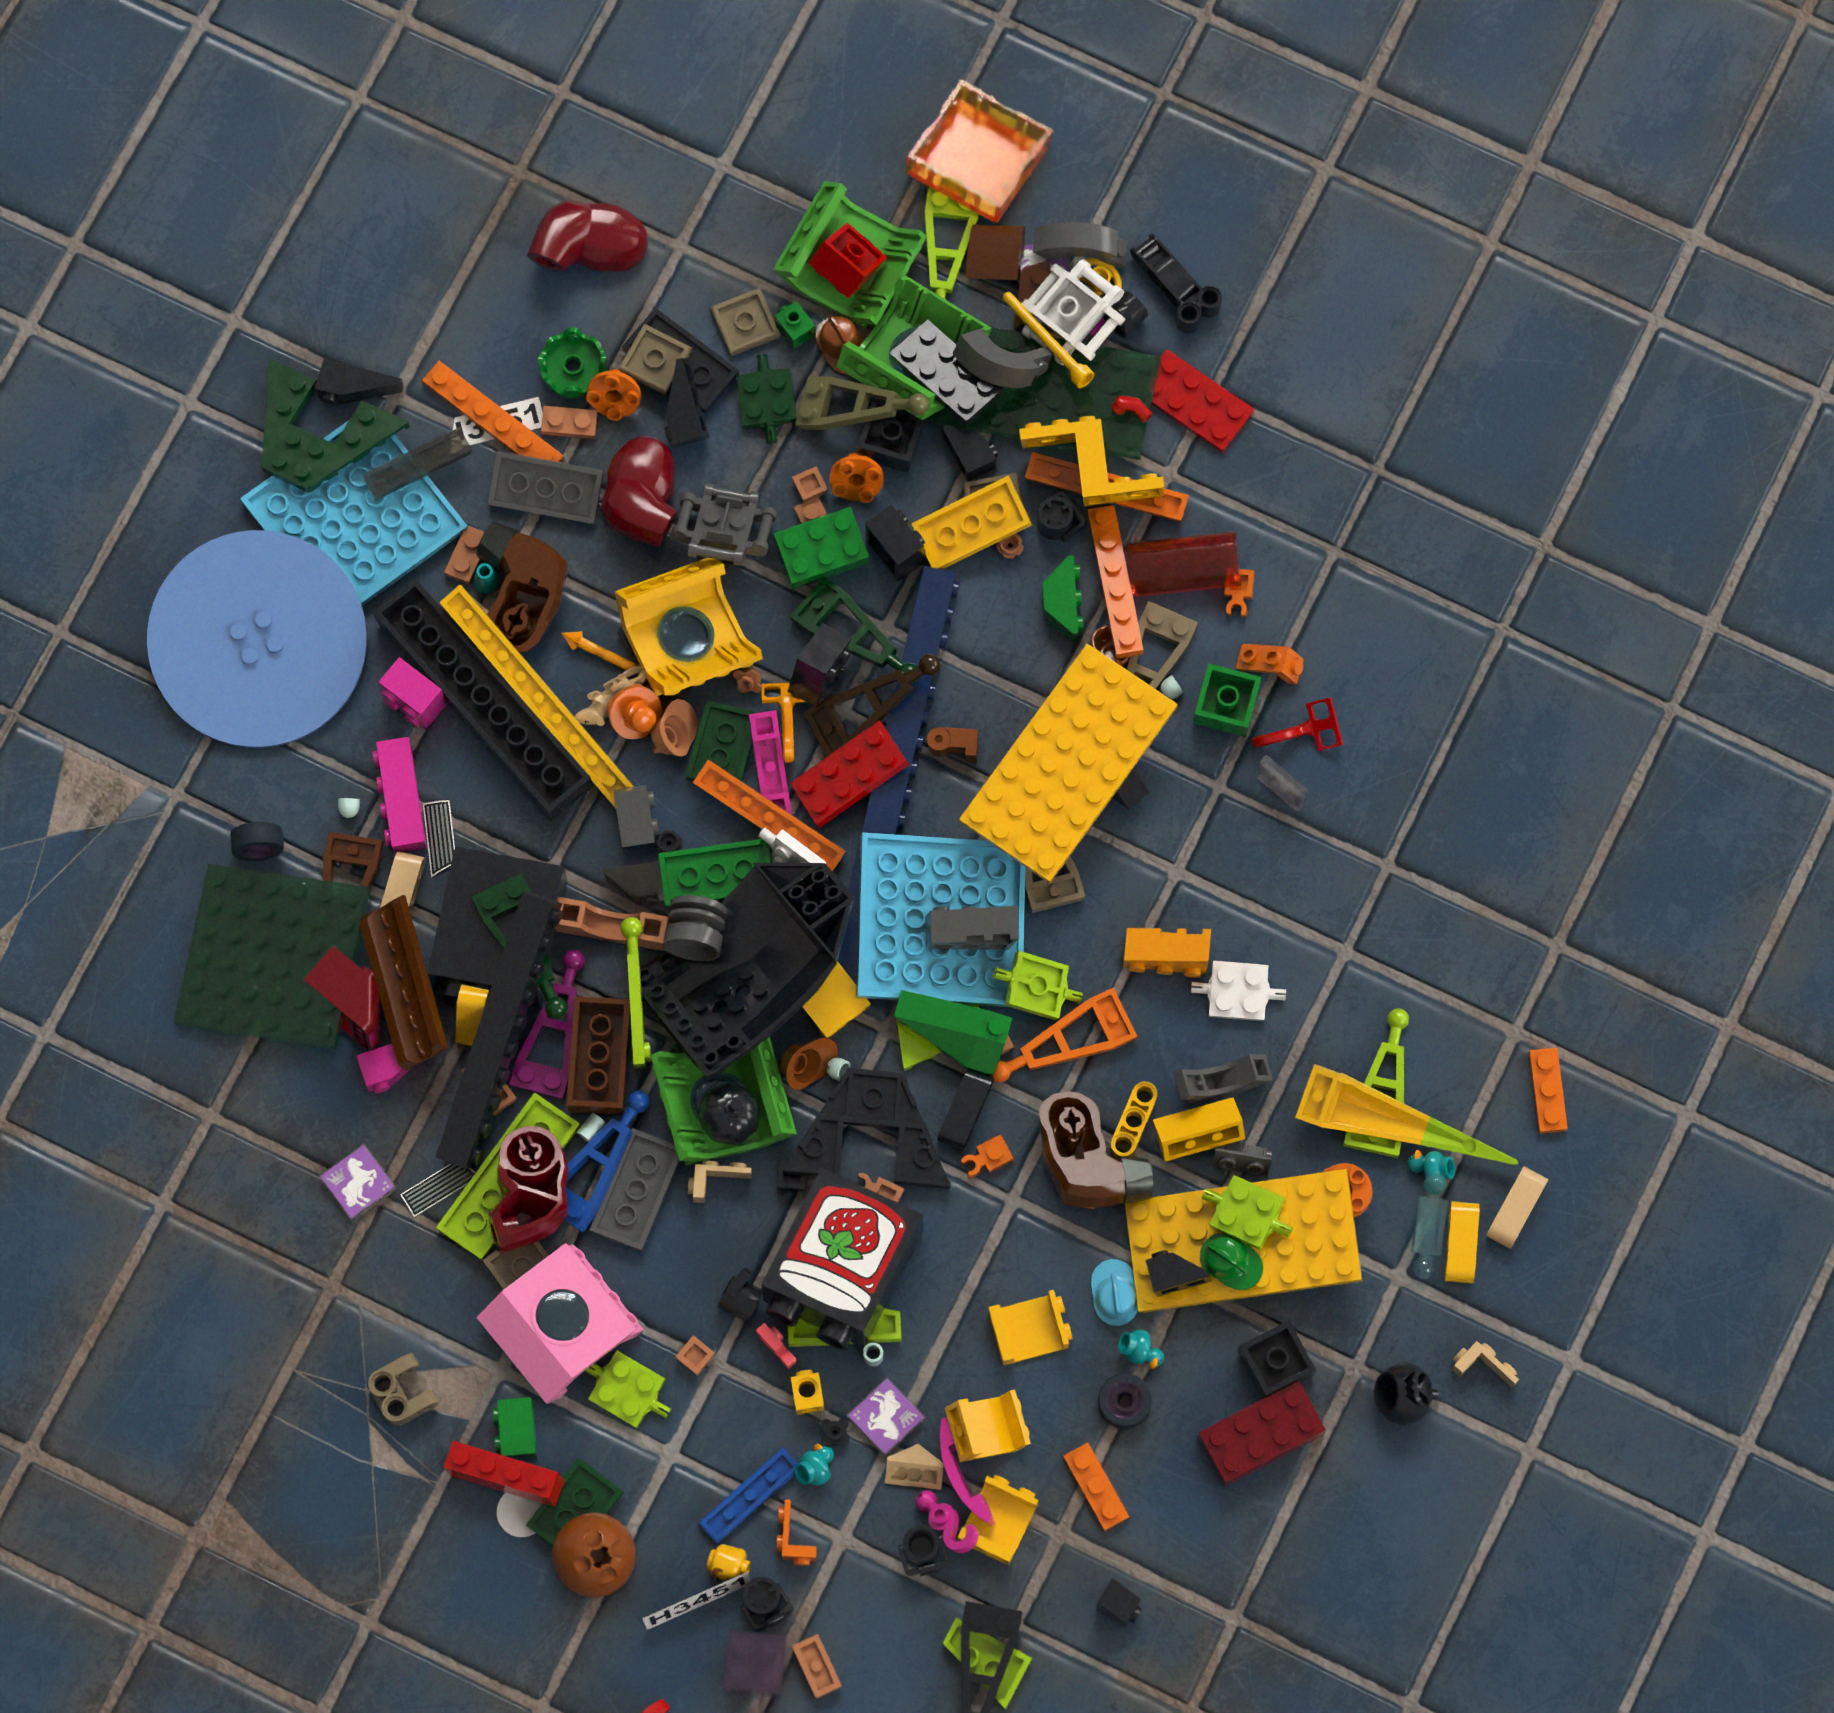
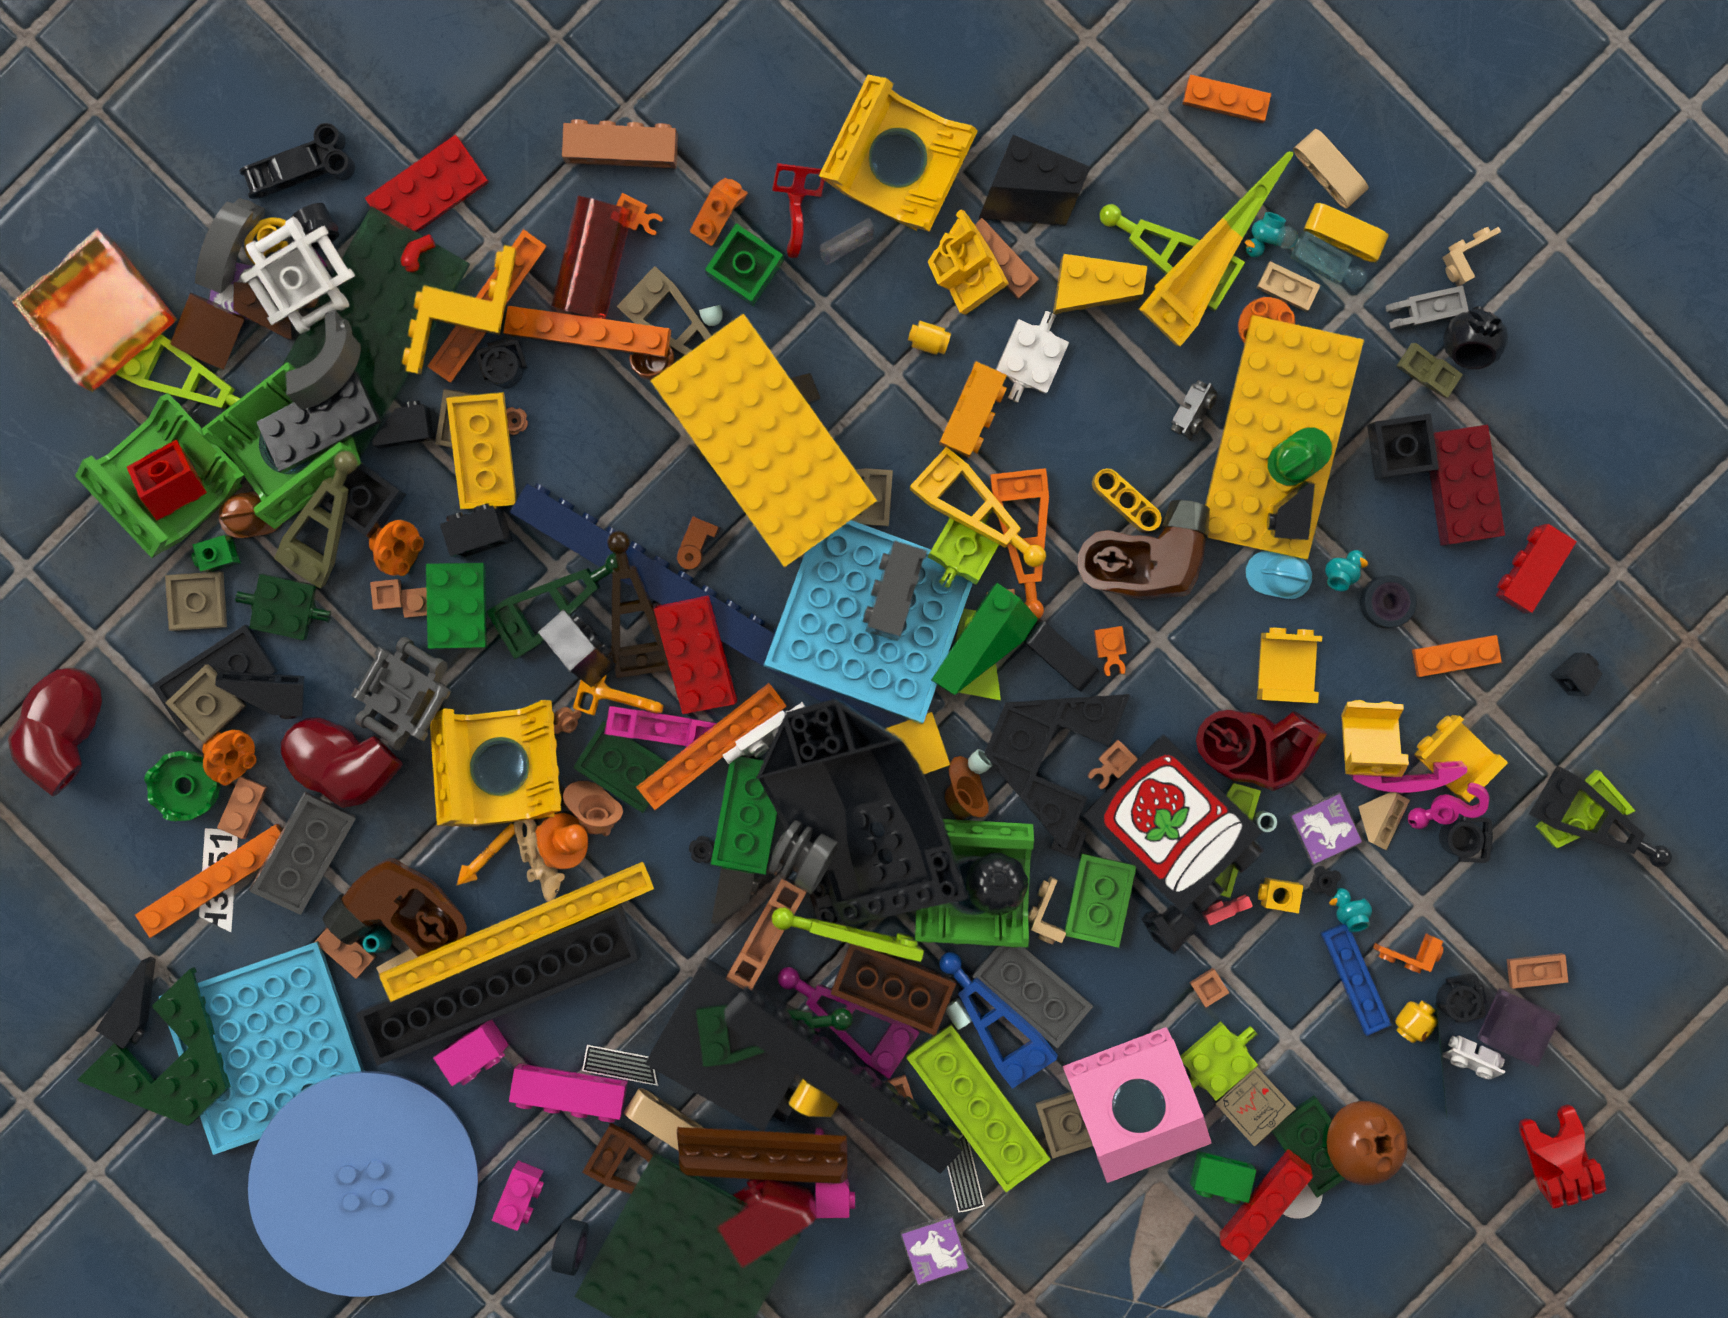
camera: 70 degrees left, 15 degrees up
(288, 781) = (517, 1196): none -> dark pink brick
(348, 807) = (562, 1145): light aqua hinge -> none
(394, 1372) = (1152, 1279): dark tan piece -> none
(417, 463) = (236, 972): clear smoke plate -> none
(533, 1188) = (1004, 1094): dark red piece -> none
(595, 1437) = (1255, 1106): none -> dark tan tile
(634, 815) = (667, 875): dark grey brick -> none
(711, 1620) = (1485, 1063): none -> white hinge
(744, 1224) = (1100, 900): none -> bright green plate
(938, 1320) = (1256, 750): none -> dark red piece
(1062, 599) = (586, 388): green slope -> none
(1080, 374) = (365, 290): yellow piece -> none
(1096, 943) = (938, 479): none -> yellow plate
(1199, 1129) = (1156, 441): yellow brick -> none
(1206, 1529) = (1535, 568): none -> red brick
(1221, 890) = (929, 338): none -> yellow brick
(1223, 1080) = (1116, 401): dark grey arch -> none
(1247, 1212) = (1261, 424): lime plate -> none
(1297, 555) = (620, 144): none -> nougat brick
(1300, 900) = (966, 265): none -> yellow slope
(1320, 932) = (1015, 270): none -> nougat plate
(1328, 1024) = (1096, 282): none -> yellow wedge
(1360, 1367) = (1429, 371): none -> olive slope
(1379, 802) = (896, 155): none -> yellow panel
(1391, 1205) = (1288, 286): none -> tan plate
(1398, 938) = (1034, 185): none -> black wedge
(1420, 1345) = (1430, 307): none -> light grey hinge

